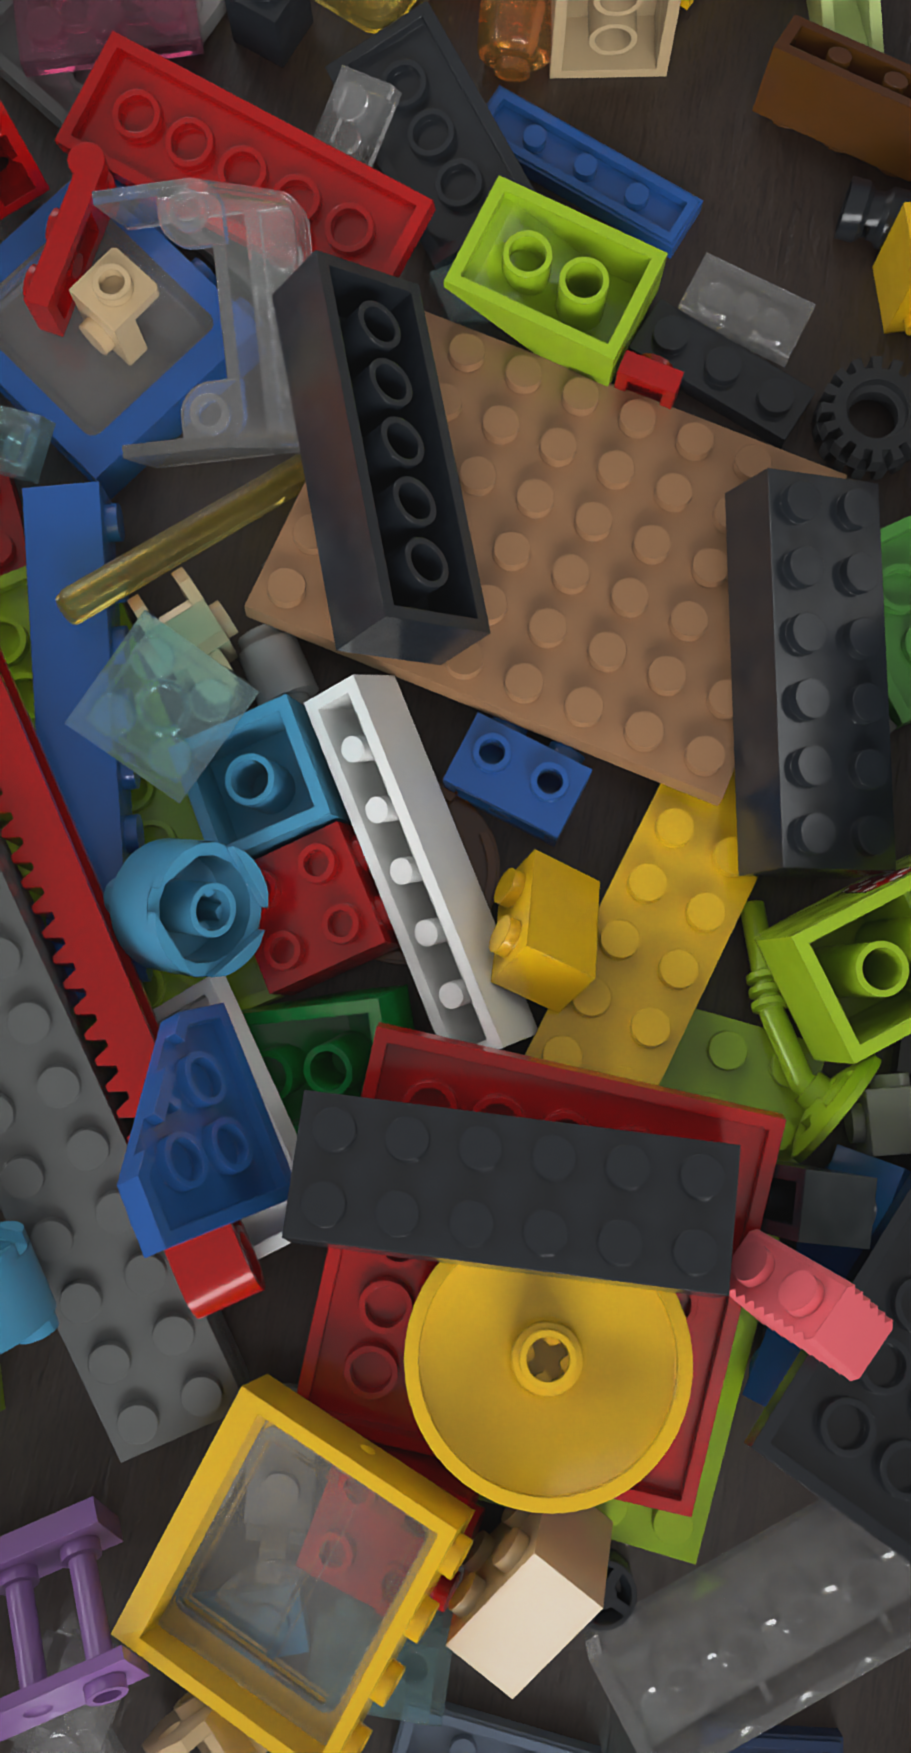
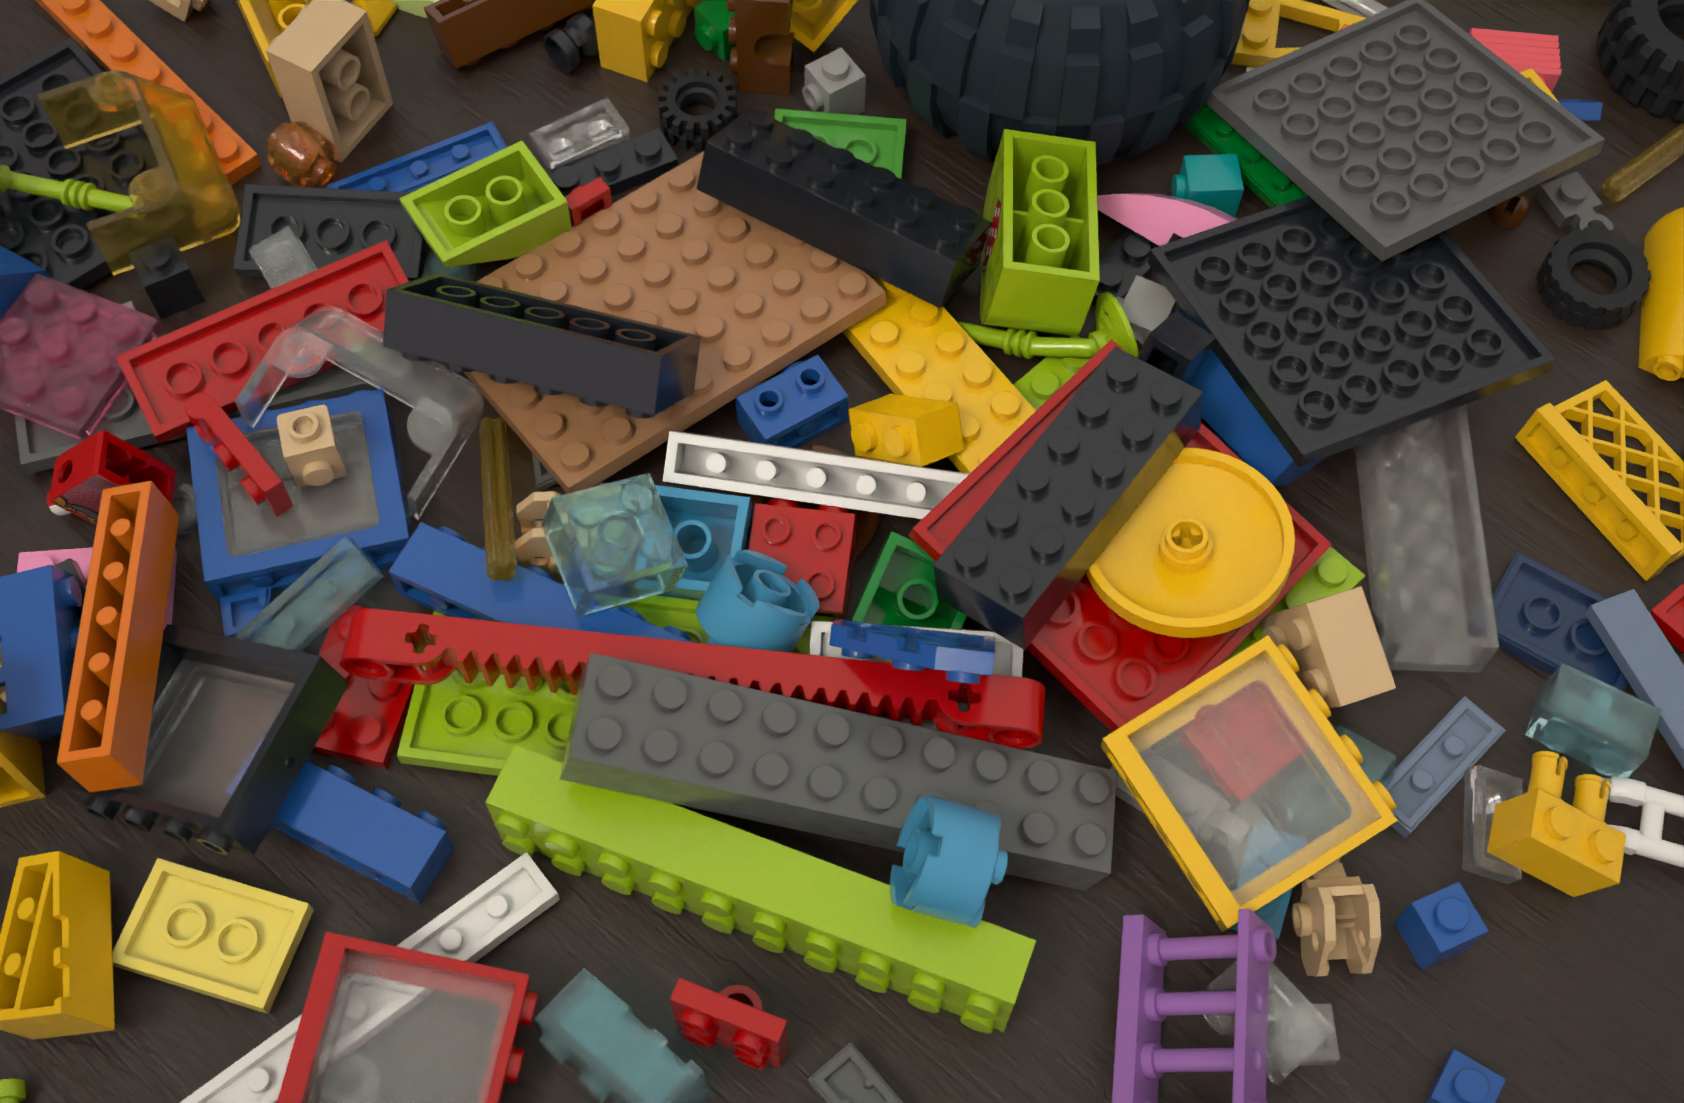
camera: 65 degrees left, 20 degrees down
(807, 1304) = (1236, 376): coral brick -> none

